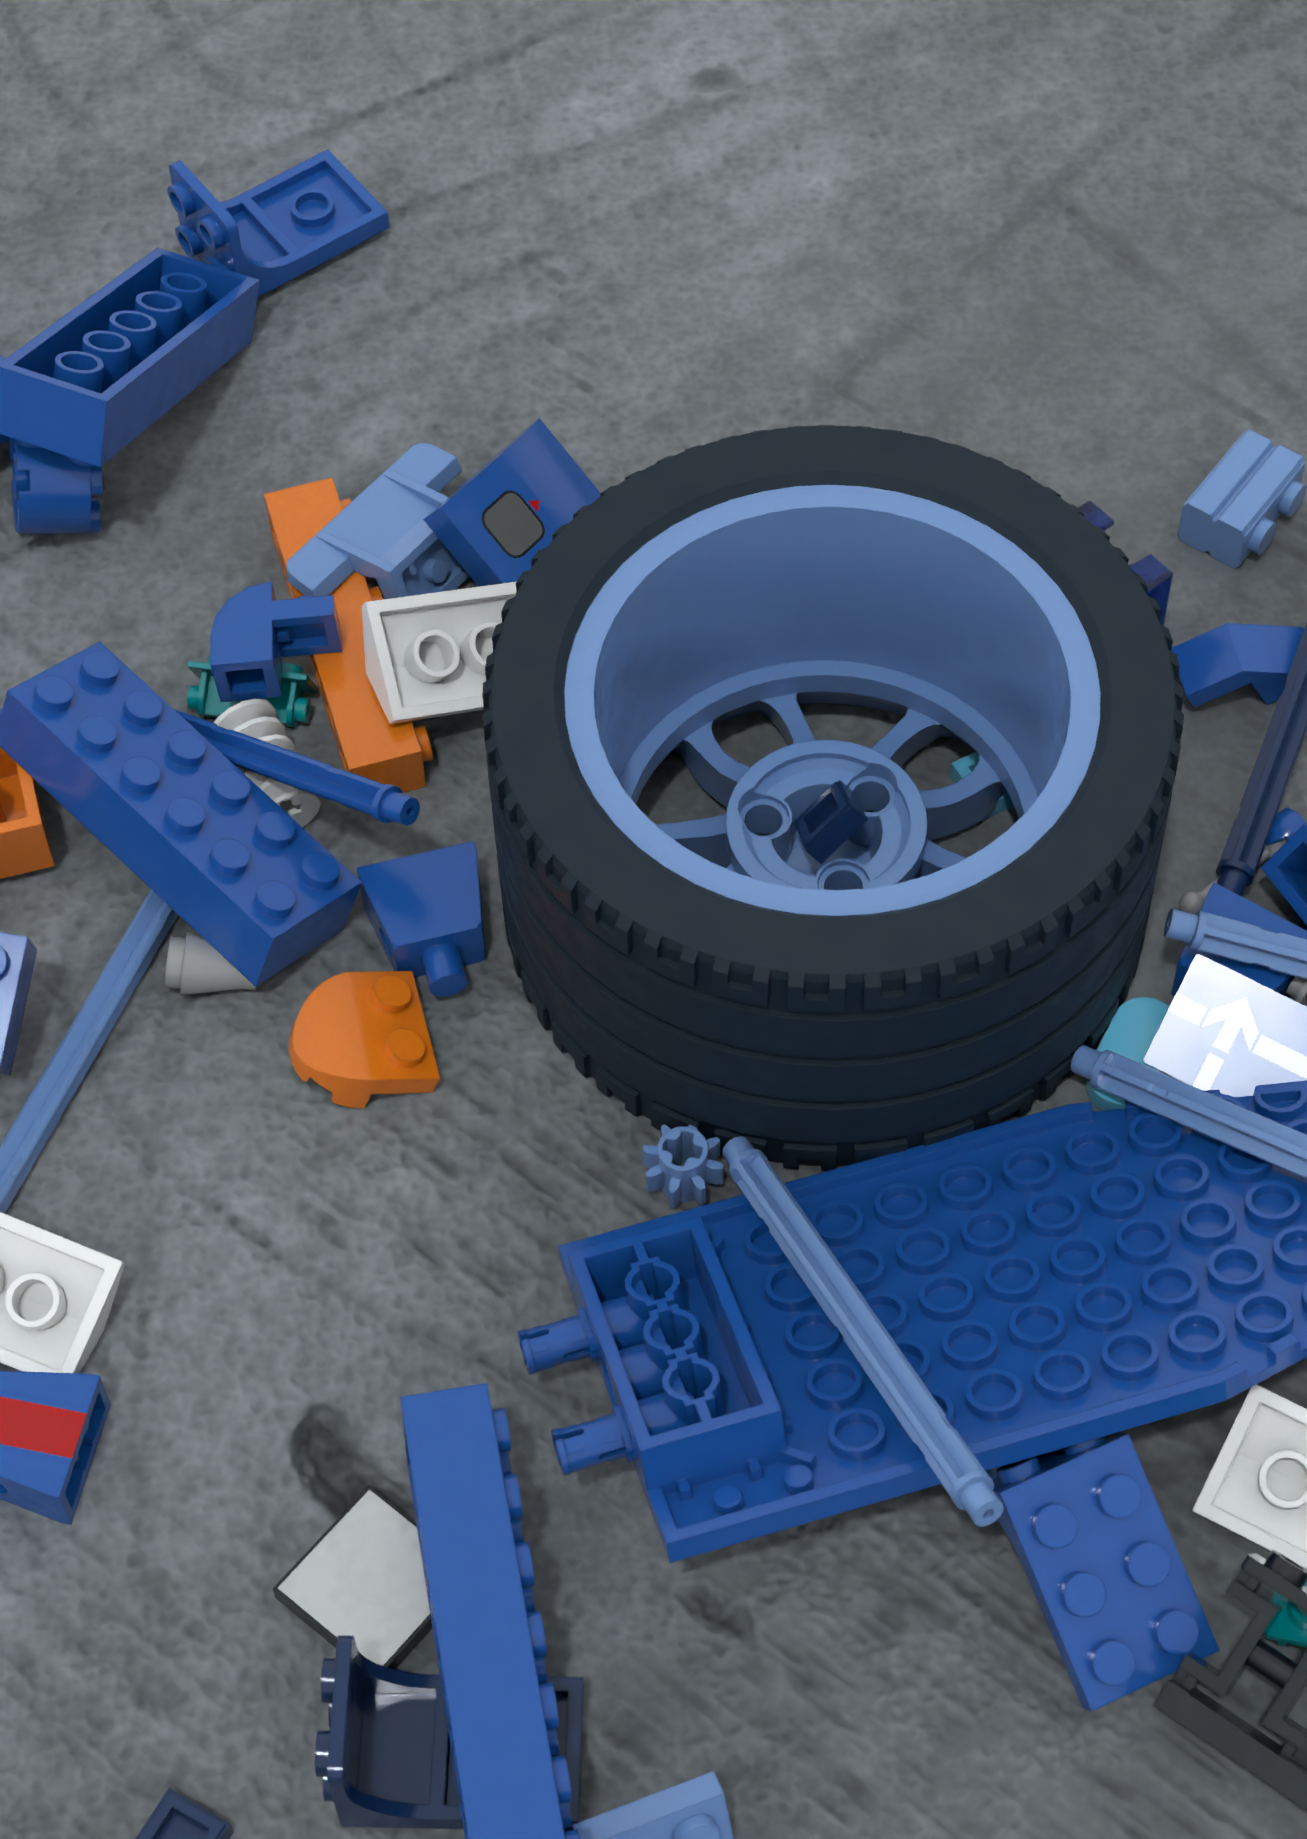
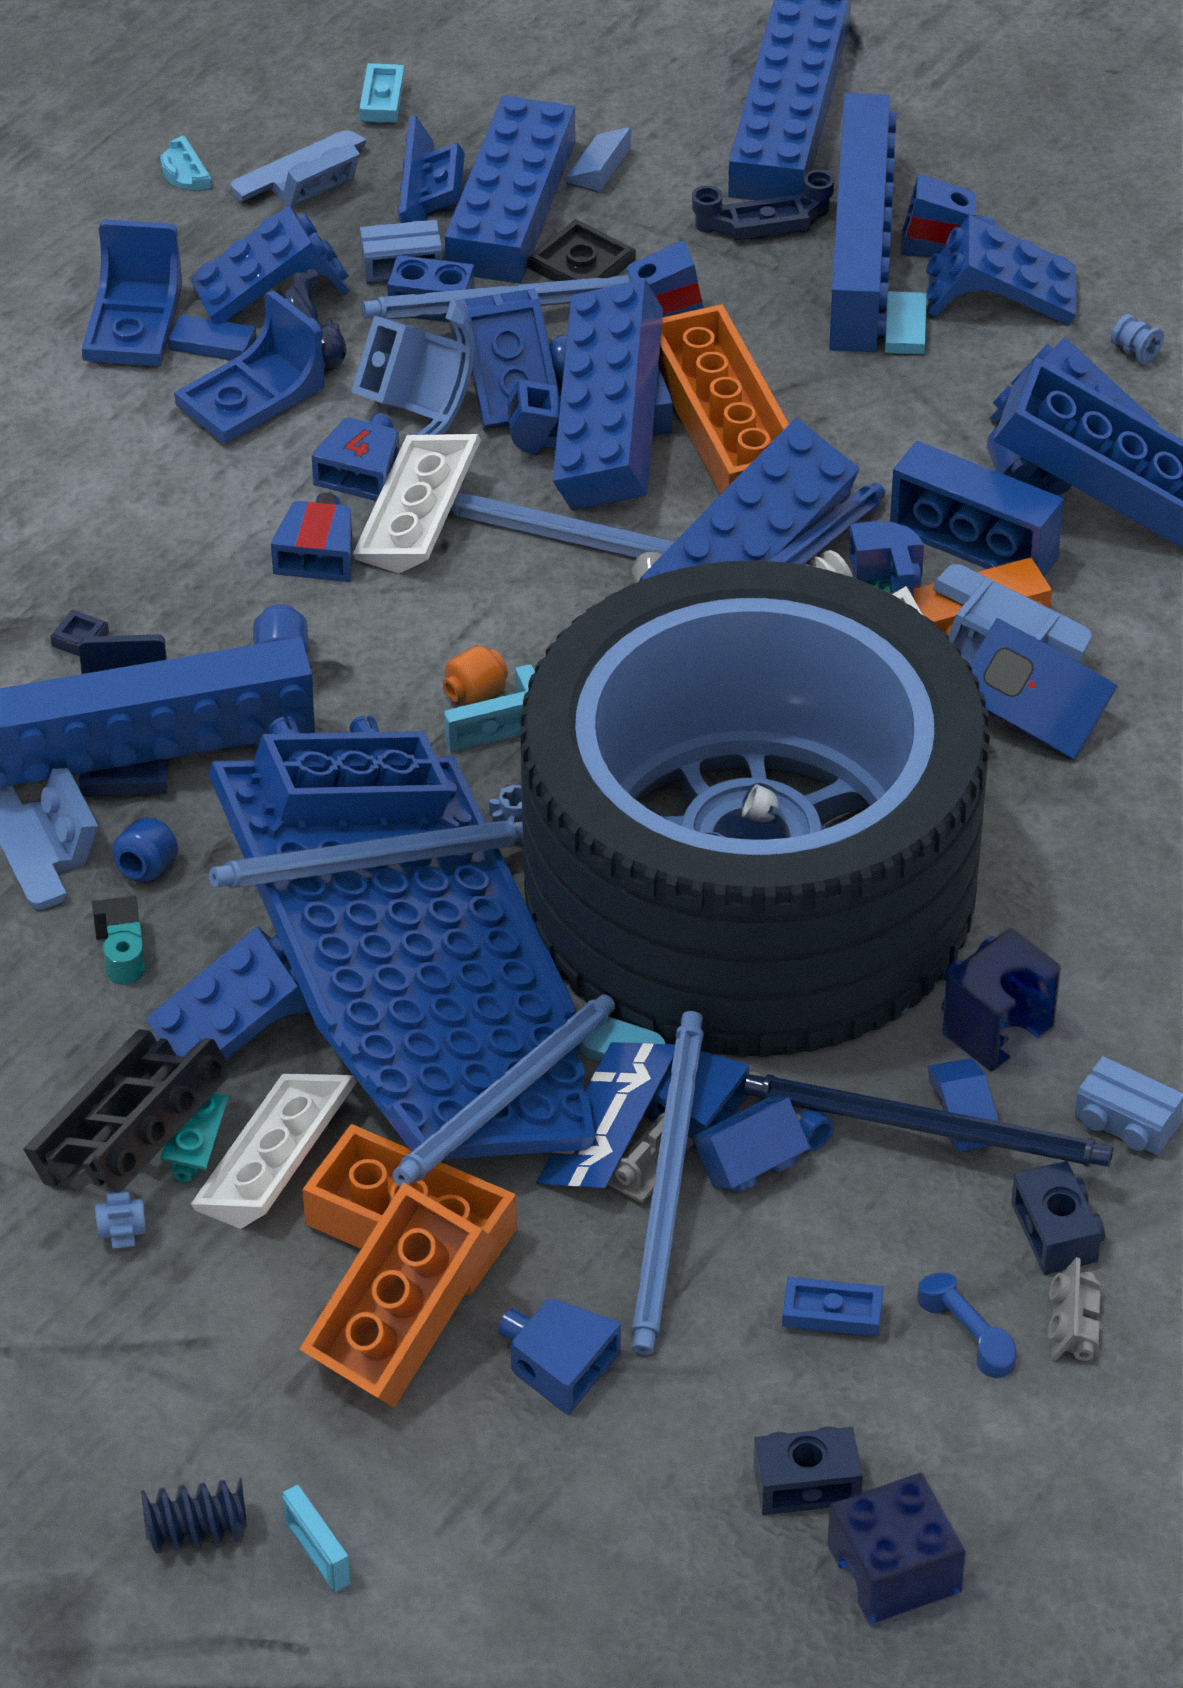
camera: 85 degrees right, 10 degrees down
(163, 544) = (975, 510): none -> blue brick
(259, 1496) = (280, 623): none -> blue head
(391, 1208) = (475, 675): none -> orange head
(466, 1137) = (488, 719): none -> medium azure bracket
(734, 1710) = (145, 849): none -> blue head
(798, 813) = (758, 804): none -> white hinge
(925, 1744) = (123, 950): none -> teal leg

